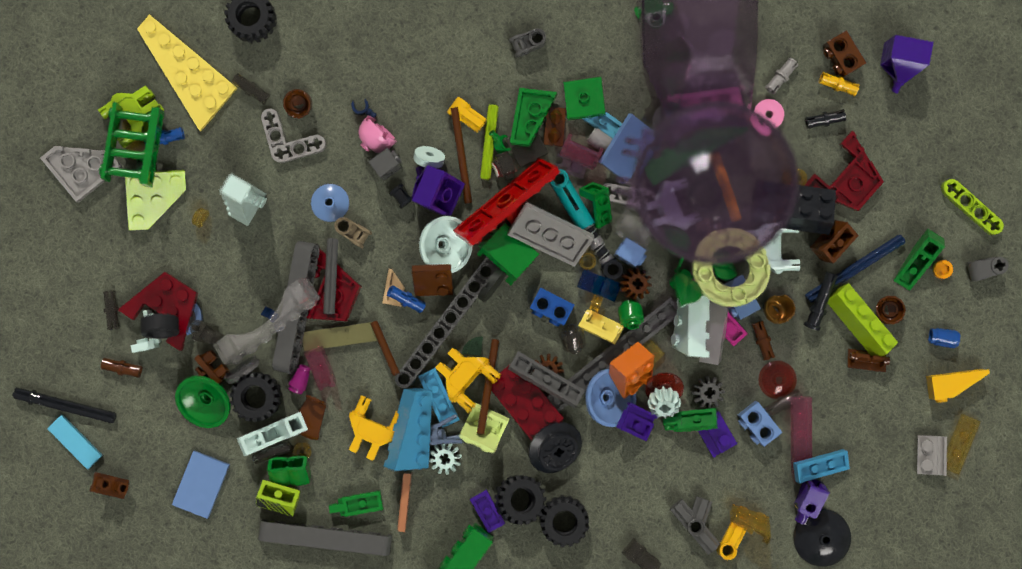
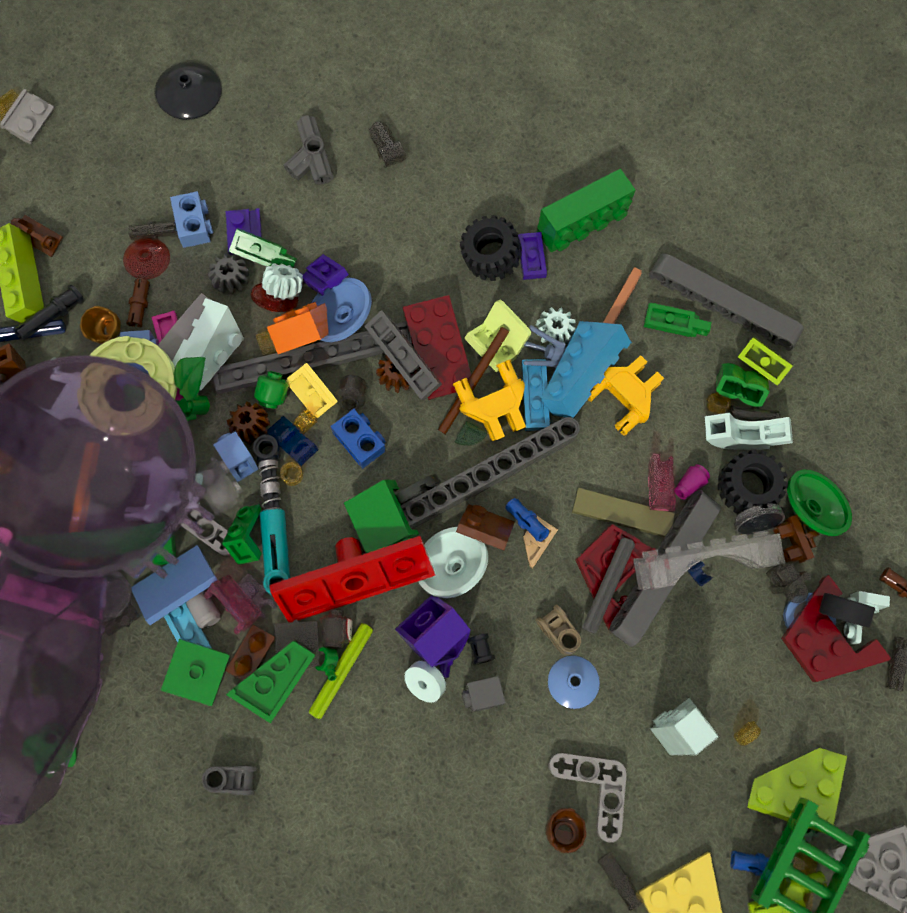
camera: 160 degrees left, 15 degrees down
(200, 484) = (850, 416): medium blue tile -> none
(313, 414) = (691, 437): reddish brown piece -> none
(367, 110) = (478, 780): dark blue piece -> none
(375, 136) = (482, 739): bright pink cylinder -> none
(385, 348) = (576, 472): reddish brown bar -> none
(461, 154) = (382, 670): reddish brown piece -> none
(468, 115) = (355, 721): yellow piece -> none
(550, 234) = (319, 518): light grey plate -> none
(555, 447) = (426, 283): black piece -> none
(564, 504) = (451, 193): black tyre -> none
(732, 537) = (283, 121): yellow piece -> none
(751, 521) = (251, 127): clear yellow wing -> none
(801, 429) = (151, 191): clear pink tile -> none
(812, 493) = (177, 124): dark purple torso -> none
(821, 466) = (148, 150): dark azure plate -> none

